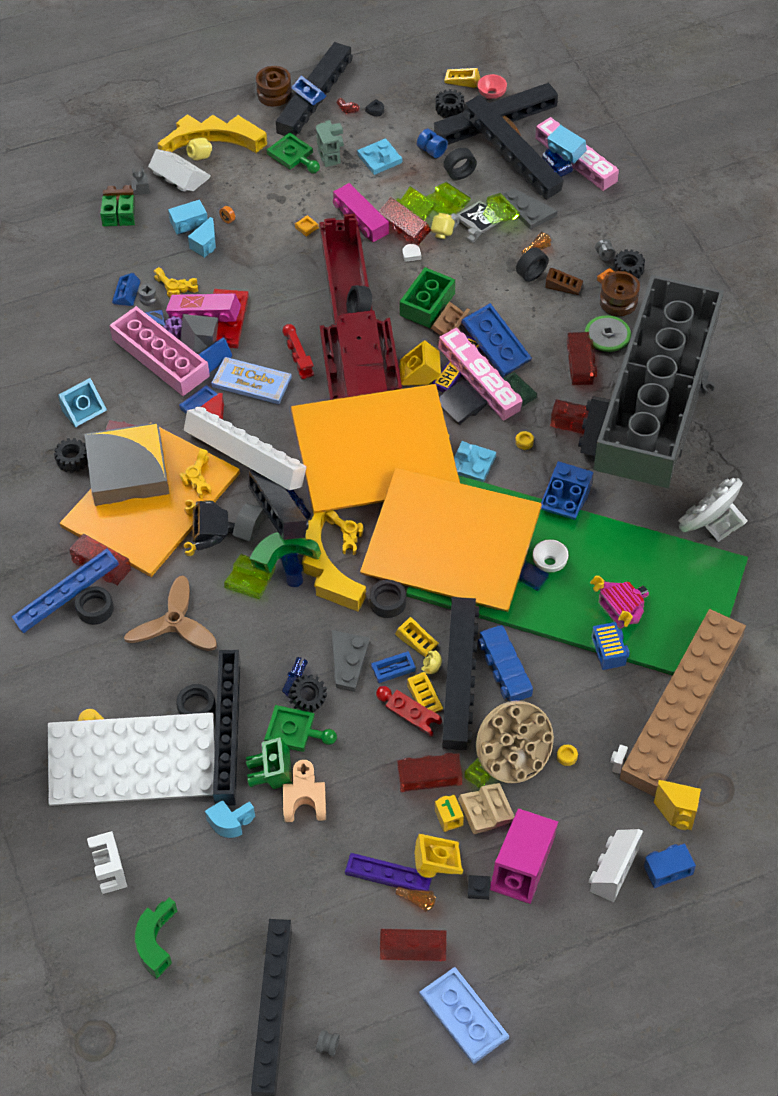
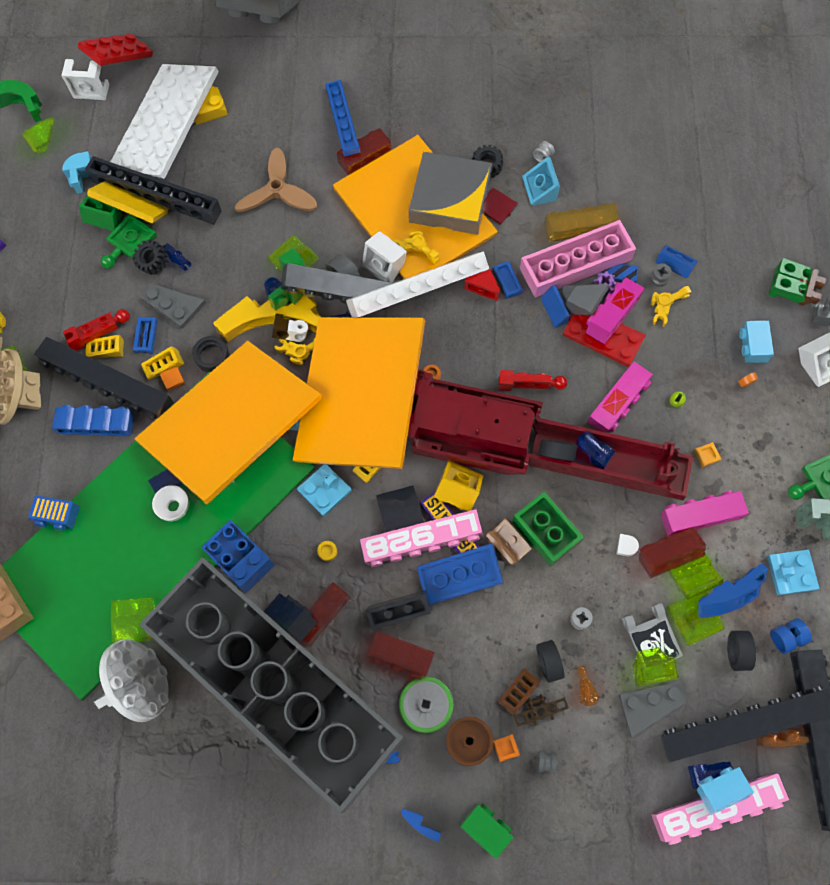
camera: 115 degrees right, 15 degrees up
(44, 413) = (545, 149): none -> light grey wheel
(54, 845) = (115, 49): none -> red plate
(92, 593) = (319, 126): black tyre -> none
(114, 362) = (579, 221): none -> clear yellow brick
(194, 885) = (39, 135): none -> clear neon green slope
(195, 690) = (191, 168): black tyre -> none
(203, 238) = (720, 348): medium azure slope -> none
(209, 525) = (352, 236): black torso -> none
(224, 489) = (383, 257): none -> white slope
(251, 380) = (513, 331): light blue tile -> none
(254, 737) = (127, 202): none -> yellow tile
(265, 255) = (682, 400): none -> lime hinge
(284, 288) = (620, 398): none -> dark pink brick
(304, 791) = (70, 227): light nougat piece -> none
(334, 544) = (289, 329): none -> leg
(345, 281) = (599, 453): none -> clear blue piece
(418, 176) = (731, 596): none -> blue slope
(428, 621) = (172, 378): none -> orange tile
(429, 772) = (31, 321): clear red brick -> none
(432, 662) = (127, 363): light yellow plate -> none
(442, 225) = (650, 591): light yellow head -> none
(486, 261) = (579, 622): none -> light grey wheel
(521, 387) = (394, 575): clear green tile -> none
(547, 365) = (399, 609): none -> black brick
(574, 270) = (546, 707): none -> dark brown piece
(621, 600) = (88, 545): torso -> none
(629, 257) = (525, 771): black tyre -> none
(664, 543) = (127, 616): none -> clear neon green slope
(675, 253) = (487, 831): none -> green brick

